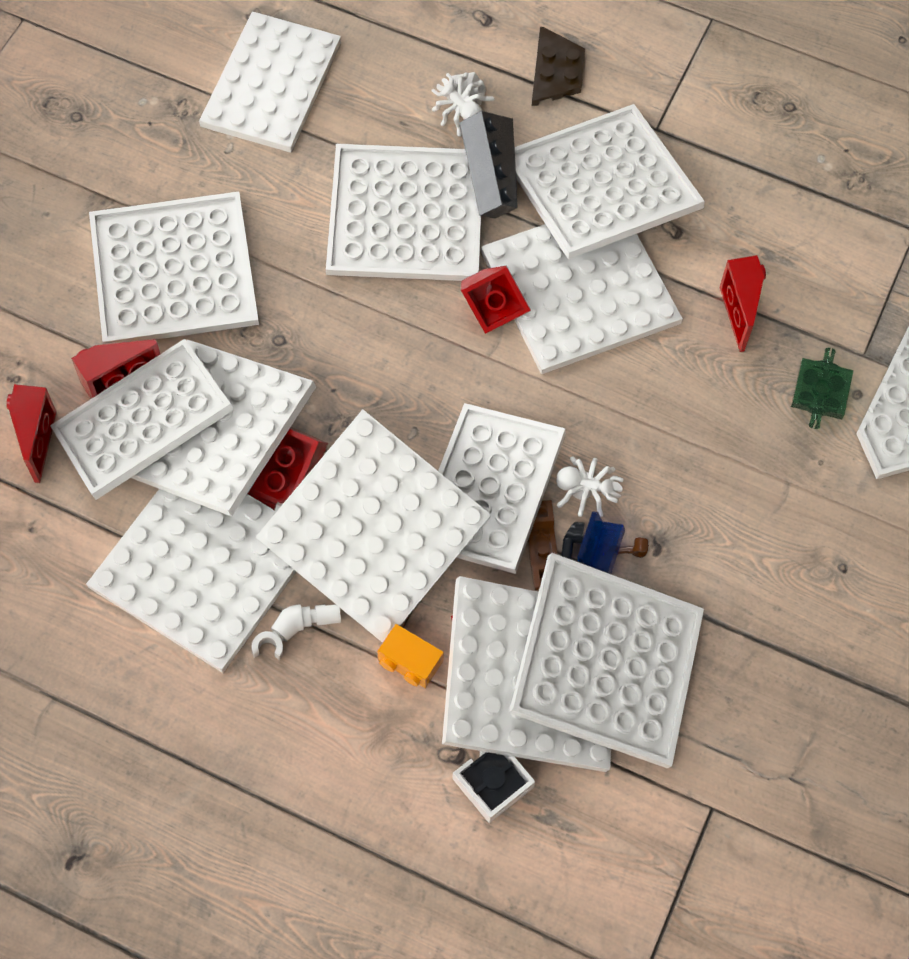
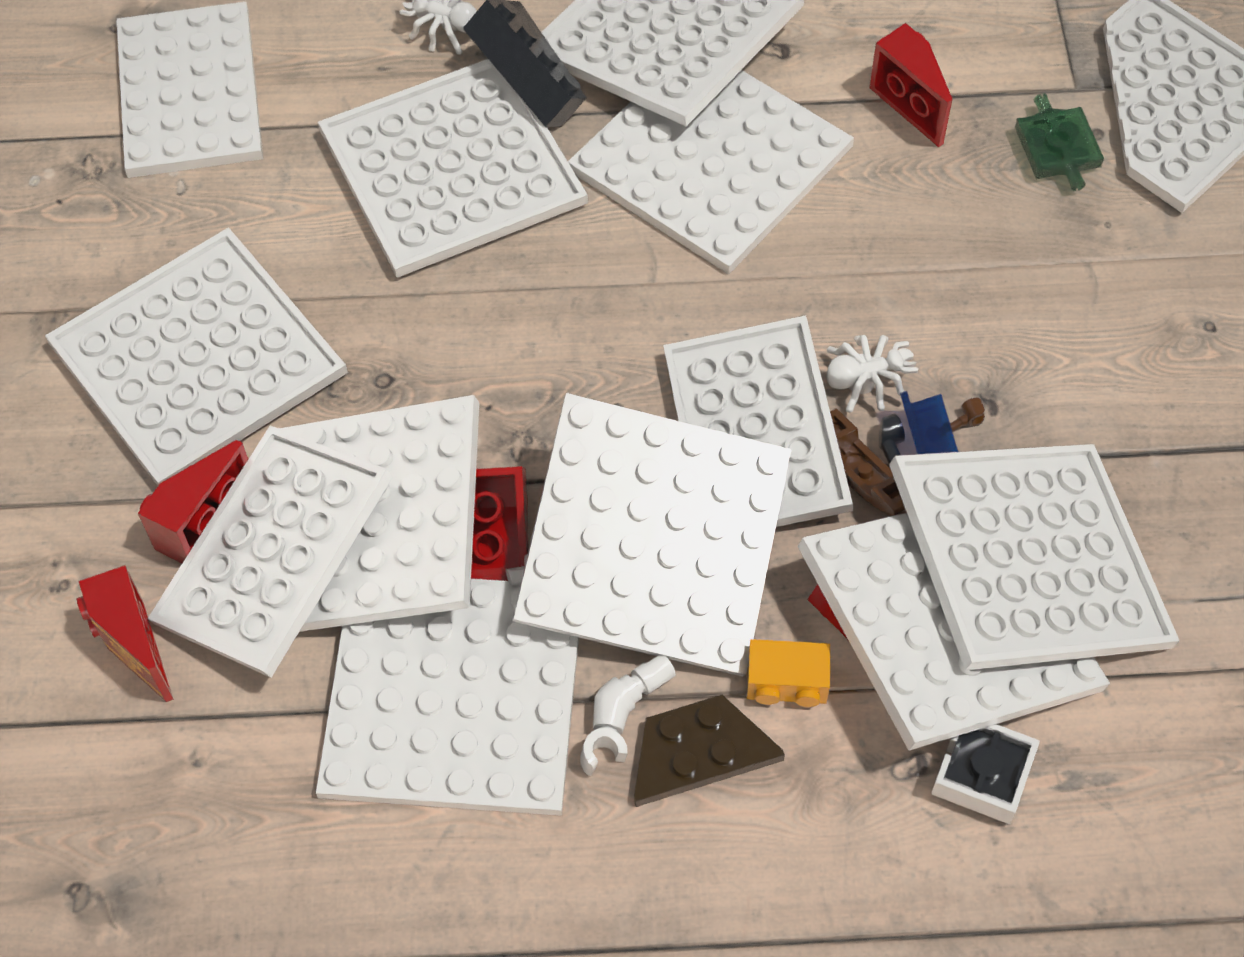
camera: 25 degrees left, 5 degrees down
(327, 674) = (698, 748): none -> dark brown wing
(494, 297) = (624, 207): red slope -> none

